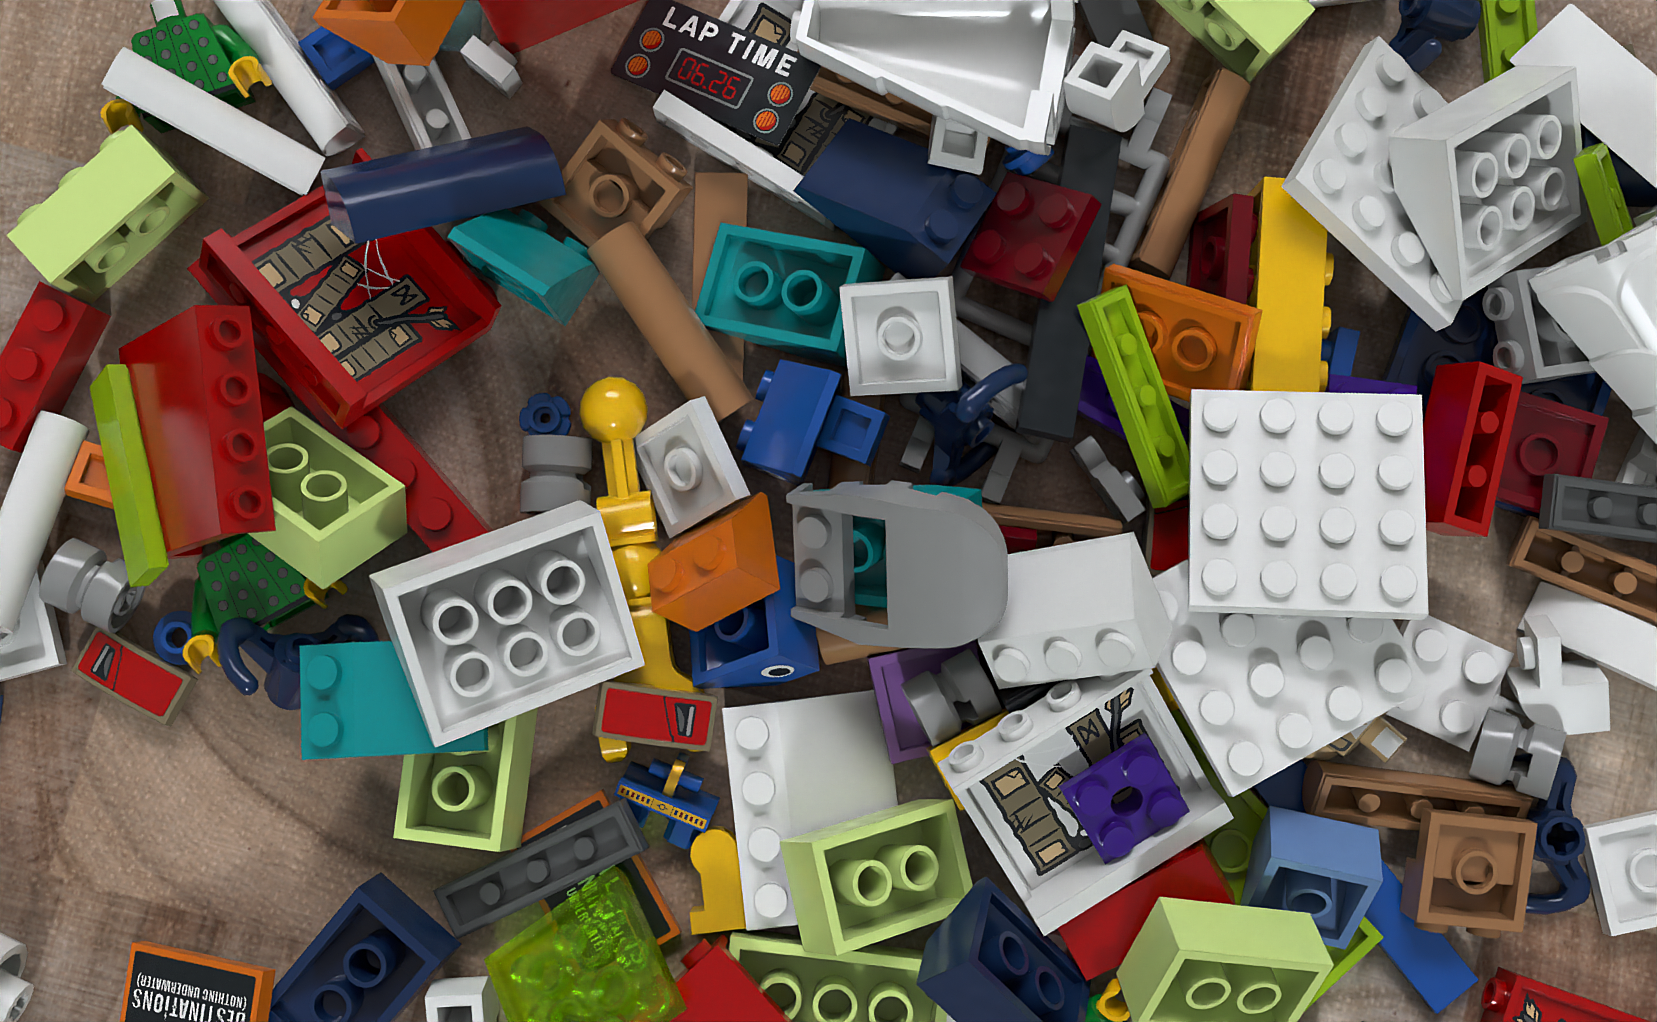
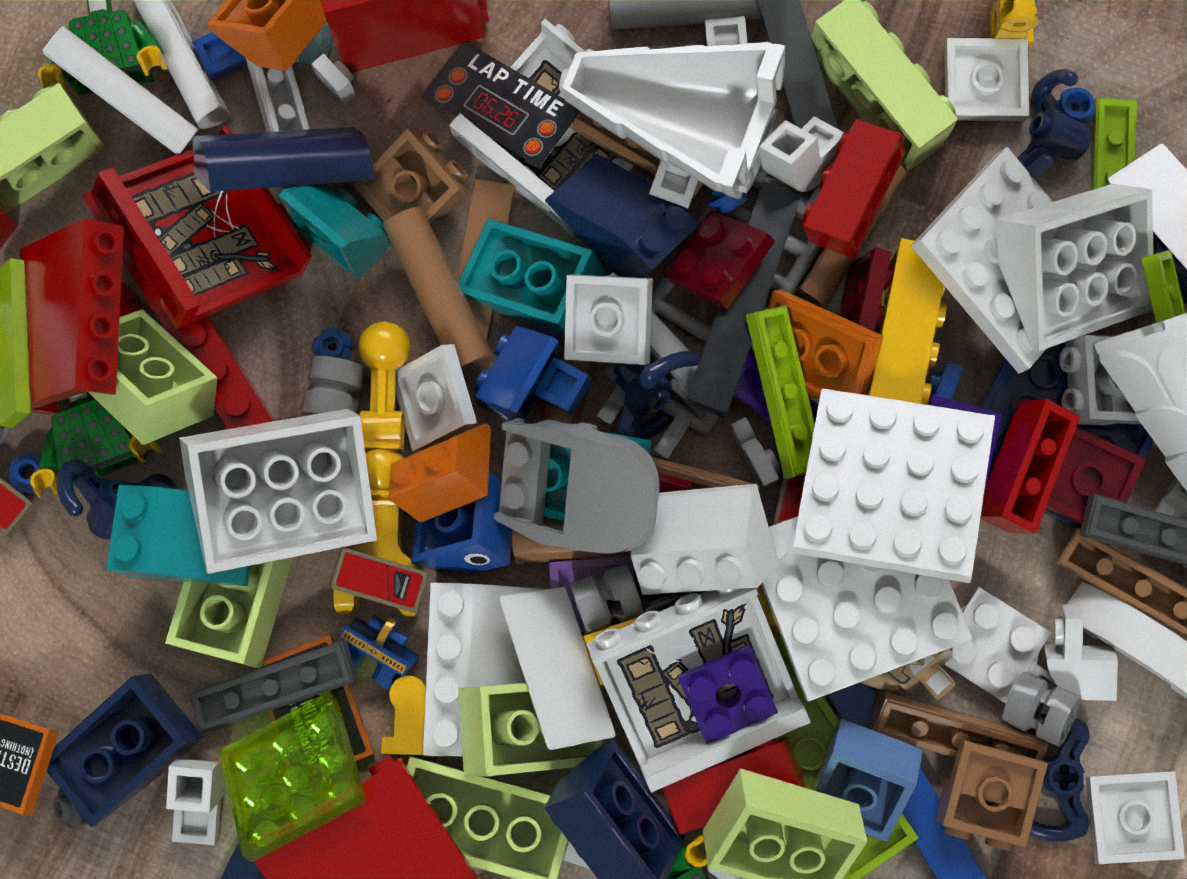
camera: 15 degrees right, 5 degrees down
(902, 797) = (557, 668): none -> white sticker
(1190, 117) = (853, 188): none -> red brick

